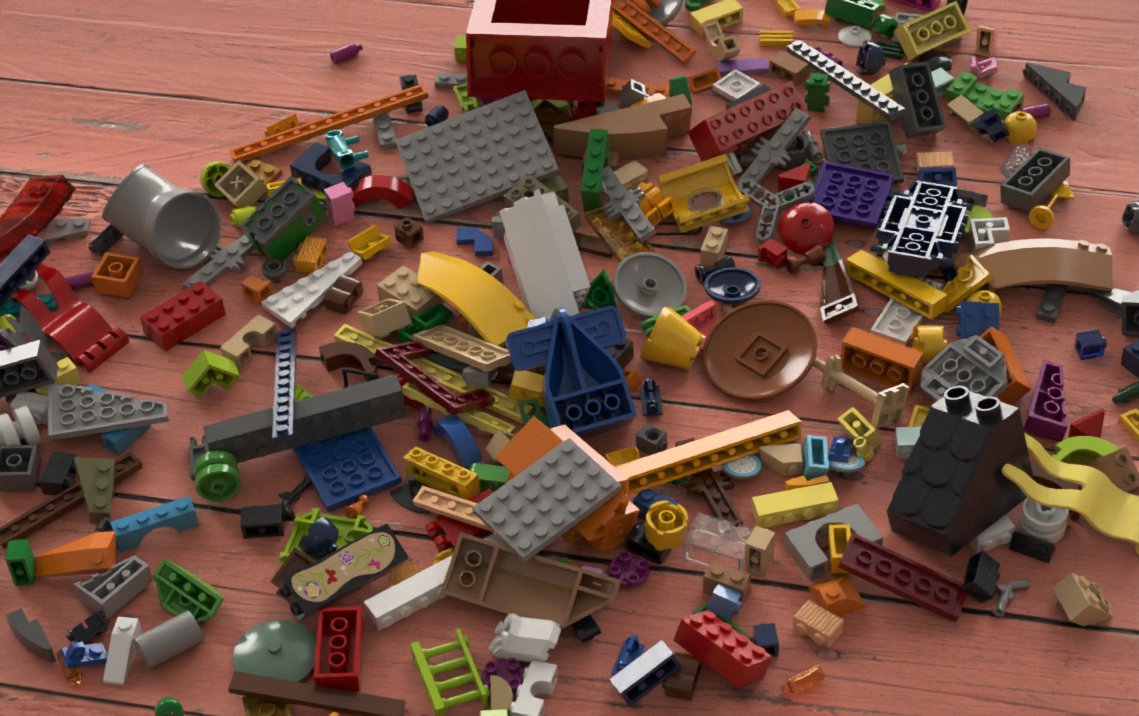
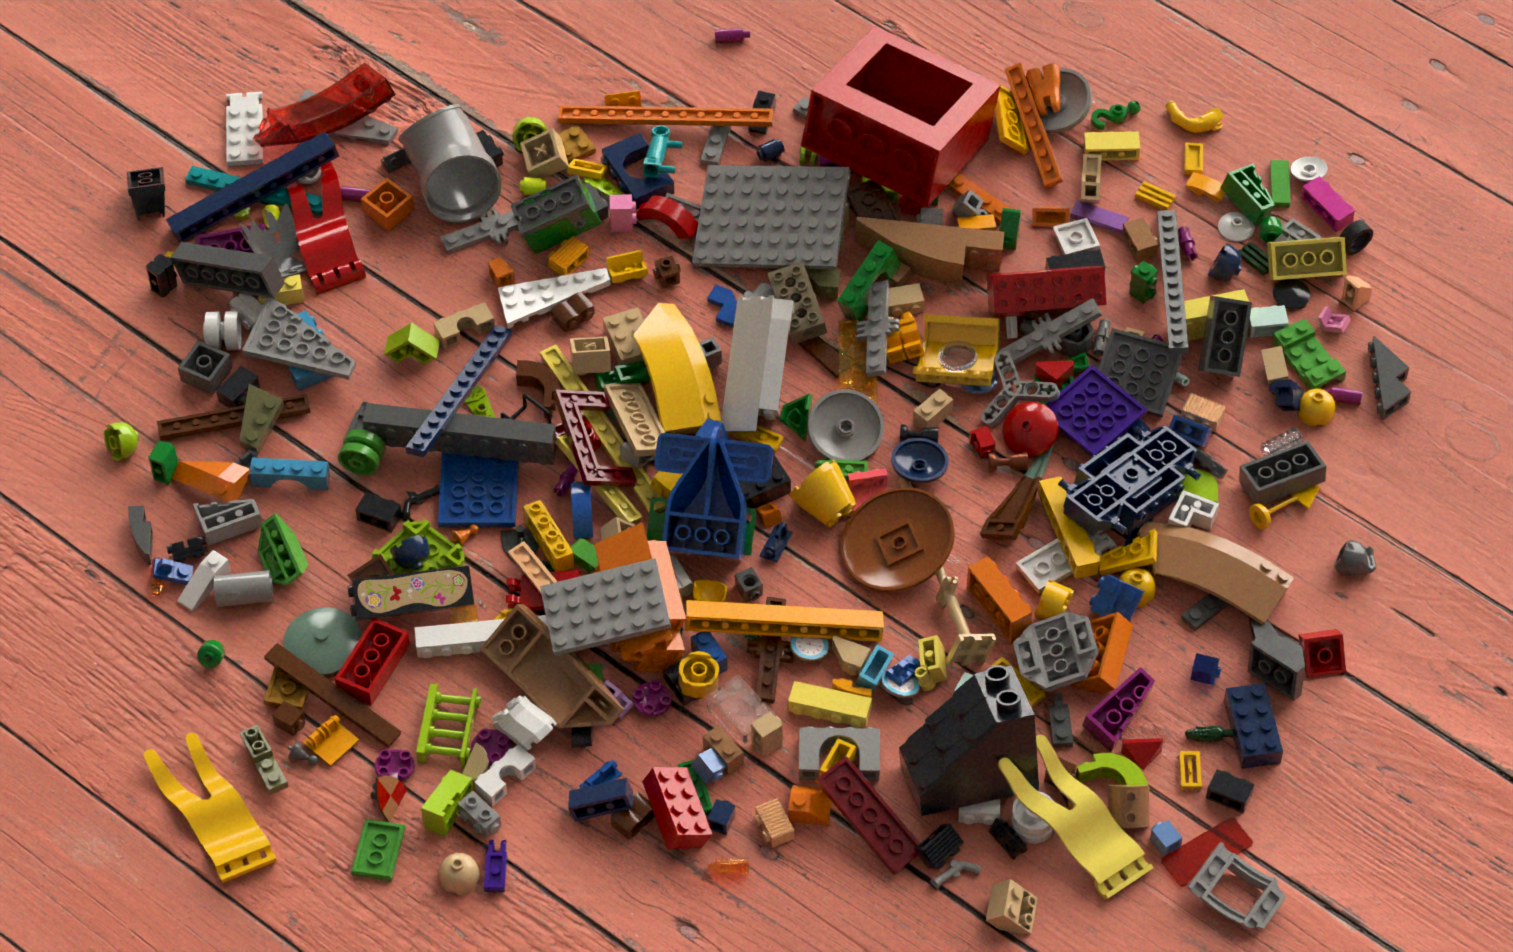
camera: 25 degrees right, 10 degrees up
(182, 315) = (422, 272): red brick -> none
(274, 270) = (526, 258): dark grey brick -> none

